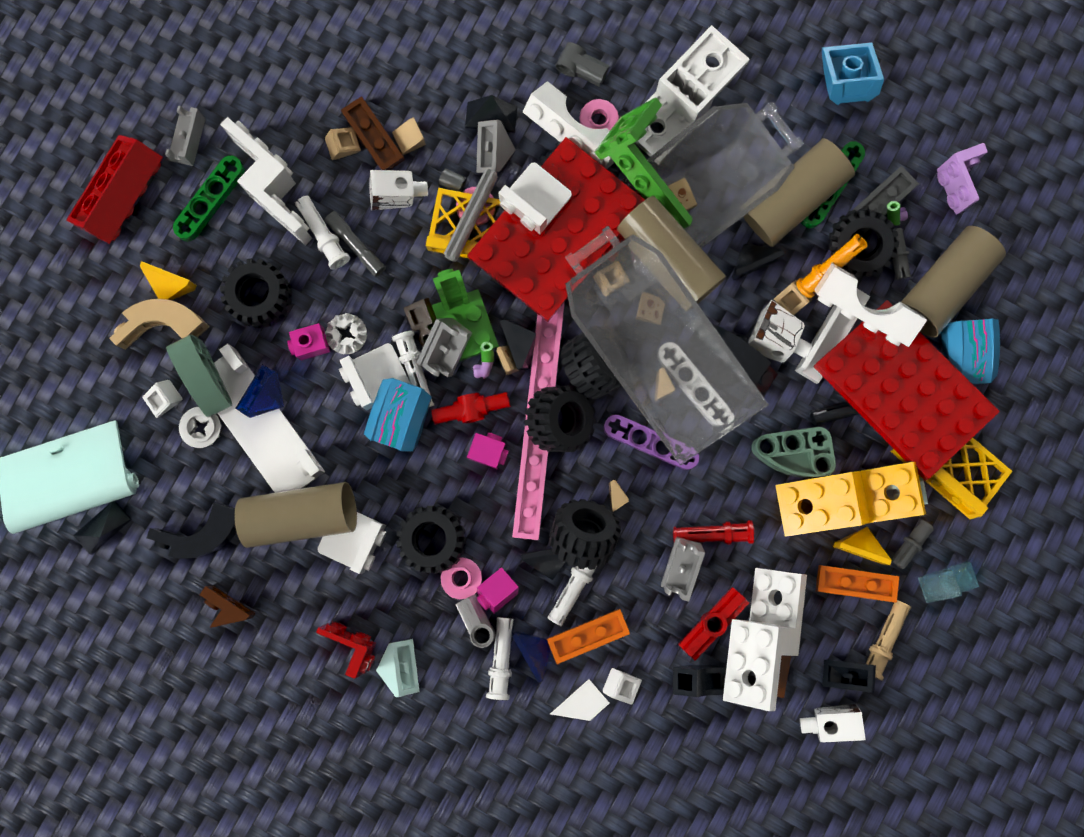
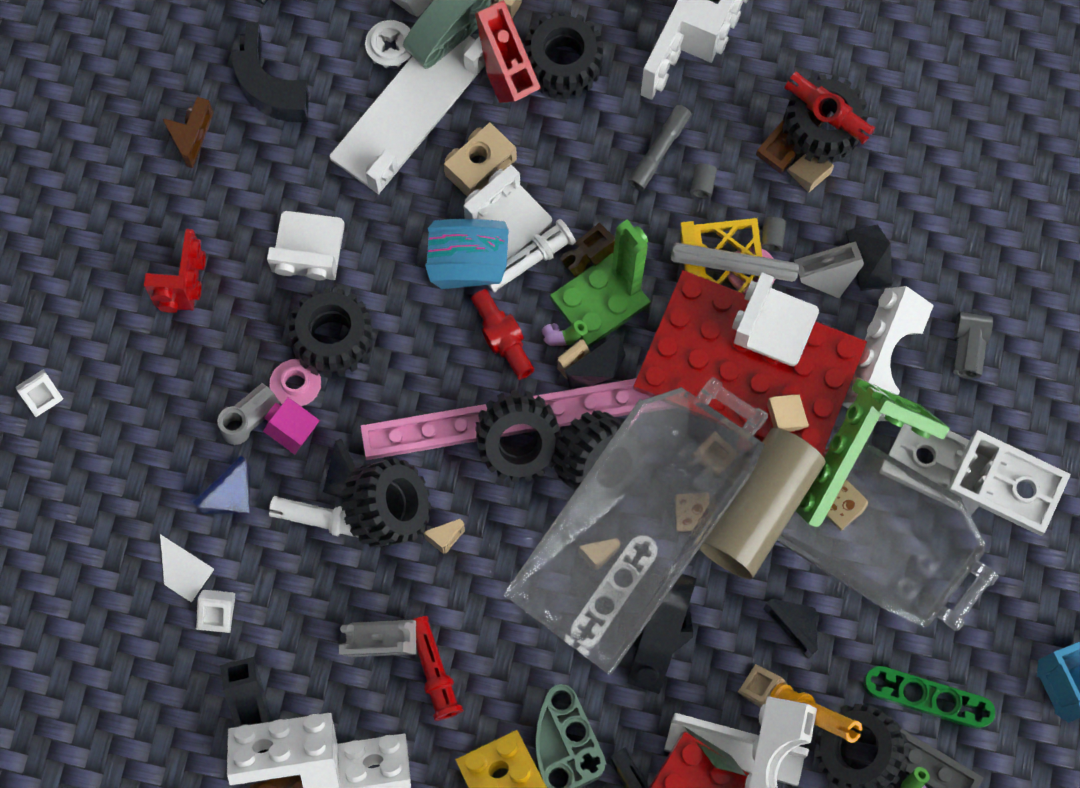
camera: 75 degrees right, 10 degrees down
(245, 338) = (504, 54): none -> red slope
(262, 394) = (446, 96): clear blue slope -> none
(296, 515) = (317, 172): dark tan piece -> none
(308, 342) = (525, 130): dark pink brick -> none
(318, 369) = (484, 142): none -> tan brick
(326, 240) = (651, 114): white pin -> none
(342, 143) = (774, 98): tan slope -> none
(347, 345) = (558, 179): white gear -> none
(369, 91) = (817, 141): none -> black tyre
(386, 91) = (815, 98): none -> red pin
(393, 219) = (703, 180): none -> dark grey hinge
(394, 189) = (736, 157): white torso -> none
(399, 668) = (170, 344): light aqua slope -> none
(407, 783) = (39, 393): none -> white slope
(444, 347) = (565, 278): light grey hinge -> none
(488, 450) = (457, 368): dark pink brick -> none
(500, 669) = (196, 458): white pin -> none
(588, 636) = (265, 550): orange plate -> none
(602, 107) = (922, 372): bright pink piece -> none
(607, 212) = (787, 412): none -> tan slope
(649, 446) = (518, 557): medium lavender beam -> none
(725, 610) = (301, 687): red piece -> none
(778, 334) = (707, 675): white torso -> none
(808, 186) = (896, 647): dark tan piece -> none
(847, 343) = (717, 760): none -> dark green sticker

